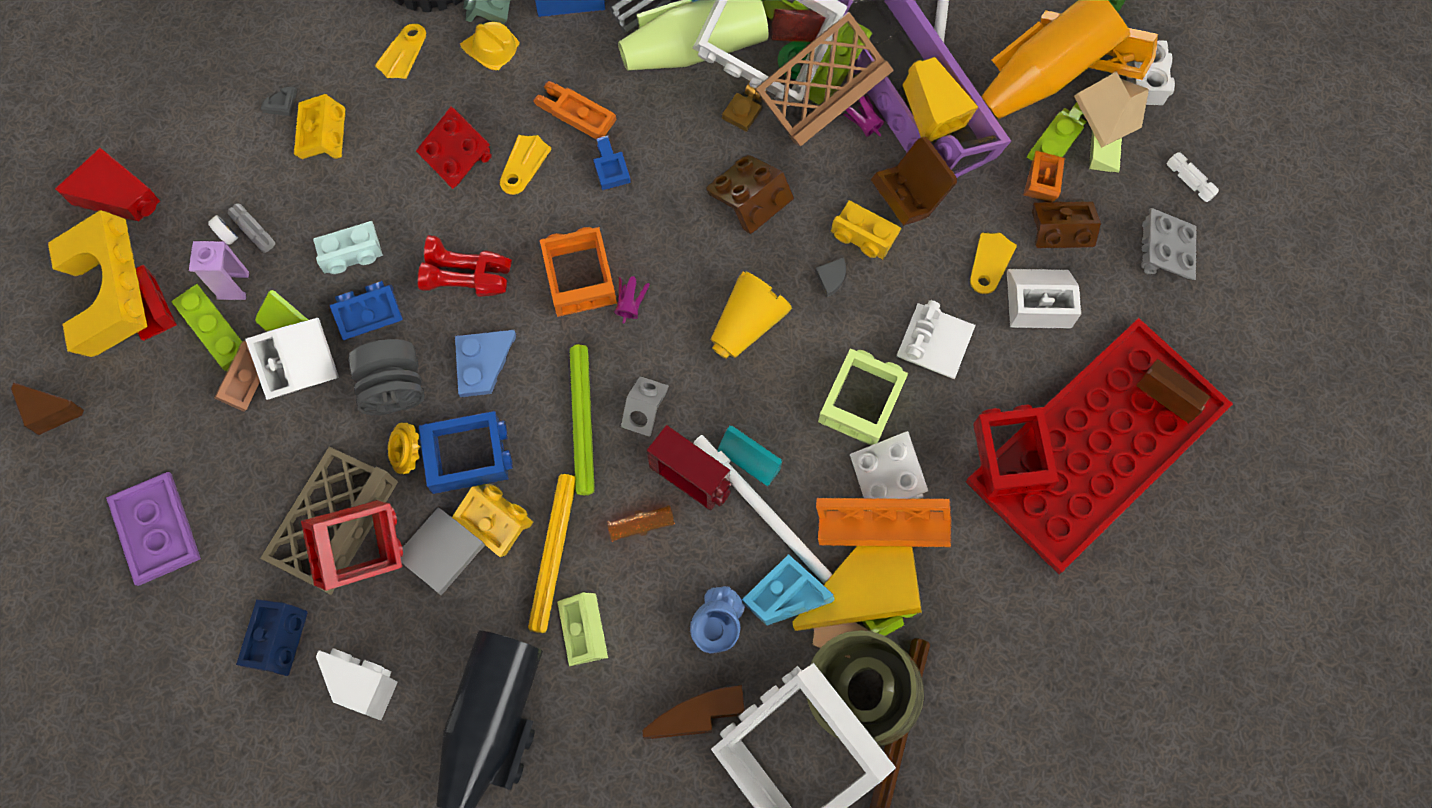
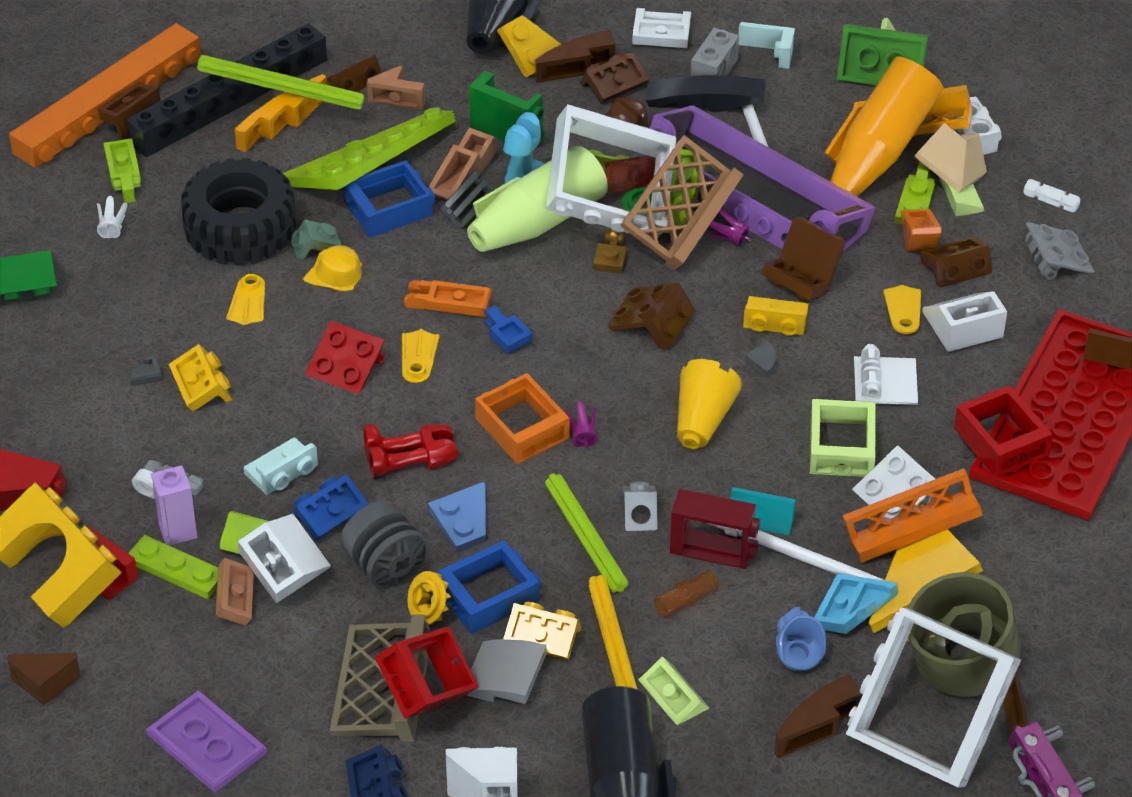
camera: 20 degrees left, 25 degrees down
(936, 100) = (790, 191): yellow slope -> none

